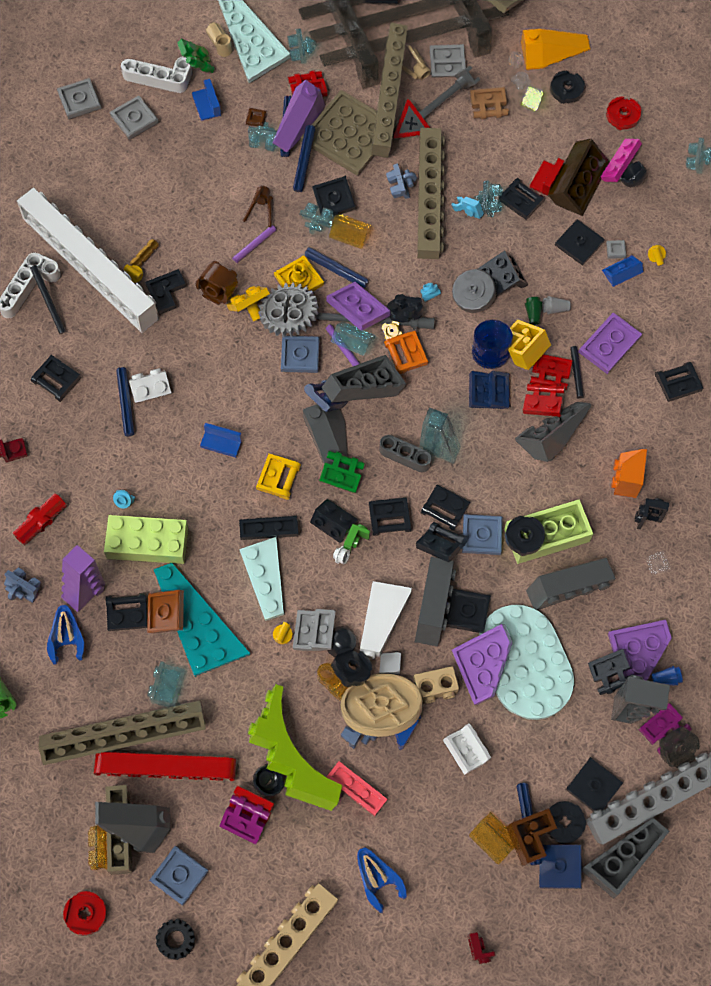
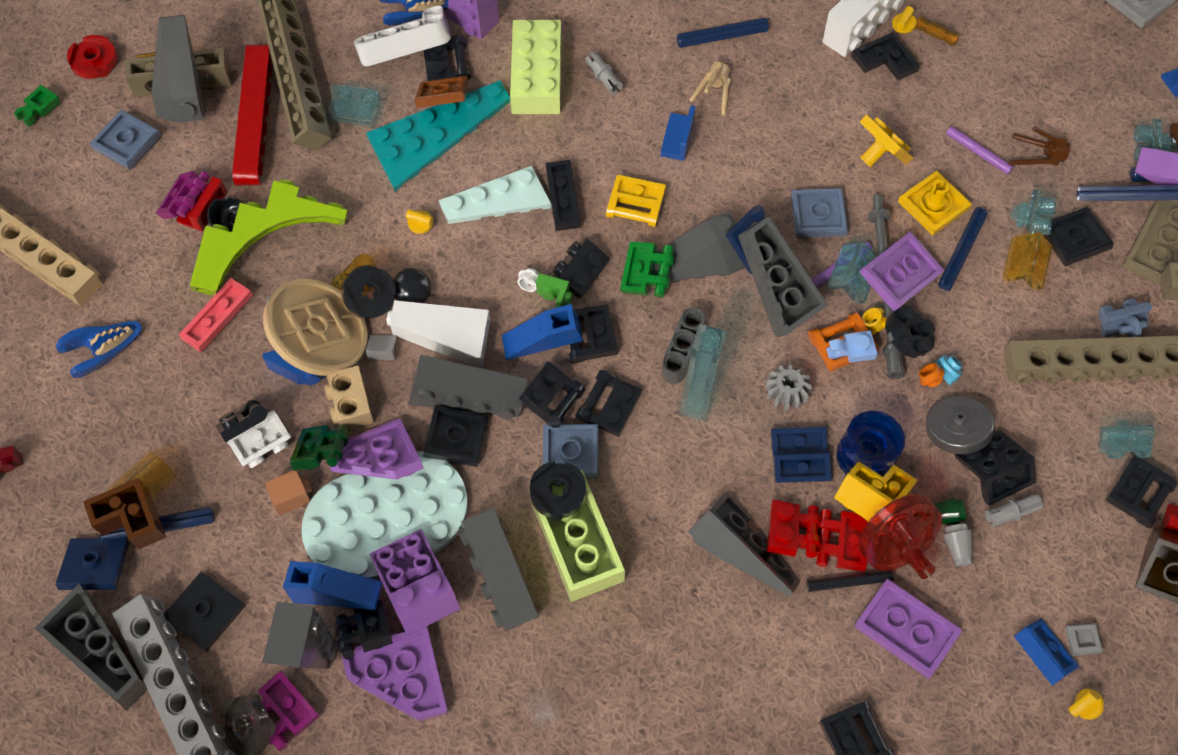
camera: 90 degrees right, 5 degrees down
(107, 638) = (404, 38): none -> white beam
(123, 499) = (591, 42): medium azure plate -> none
(131, 956) = (39, 102): none -> green plate
(150, 385) = (747, 53): white bracket -> none
(155, 490) = (604, 73): none -> light grey pin
(170, 408) = (715, 78): none -> tan plant
(185, 948) = (47, 131): black tyre -> none
(217, 283) = (905, 105): reddish brown brick -> none
(303, 311) = (878, 186): light grey gear -> none
(314, 630) = (423, 251): light grey slope -> none
(394, 546) = (543, 332): none -> blue slope
(416, 342) = (855, 346): none -> light blue plate
(432, 304) = (931, 375): none -> orange plate
(437, 395) = (785, 394): none -> light grey gear
(459, 765) = (235, 424): none -> black plate
(470, 206) = (1103, 412): medium azure plate -> none
(478, 708) = (317, 445): none -> dark green plate
(508, 726) = (288, 491): none -> nougat brick
(533, 271) = (1013, 510): none -> light grey axle
(559, 331) = (901, 535): none -> clear red piece
(573, 814) = (144, 560): black plate -> none
(579, 242) = (1084, 582): black plate -> none
(579, 637) = (414, 582): none -> medium lavender slope
(583, 692) = (330, 586): none -> blue slope
(629, 473) = (679, 651): orange slope -> none
(651, 510) = (616, 670): black bracket -> none
(669, 676) = (360, 719): blue cone -> none

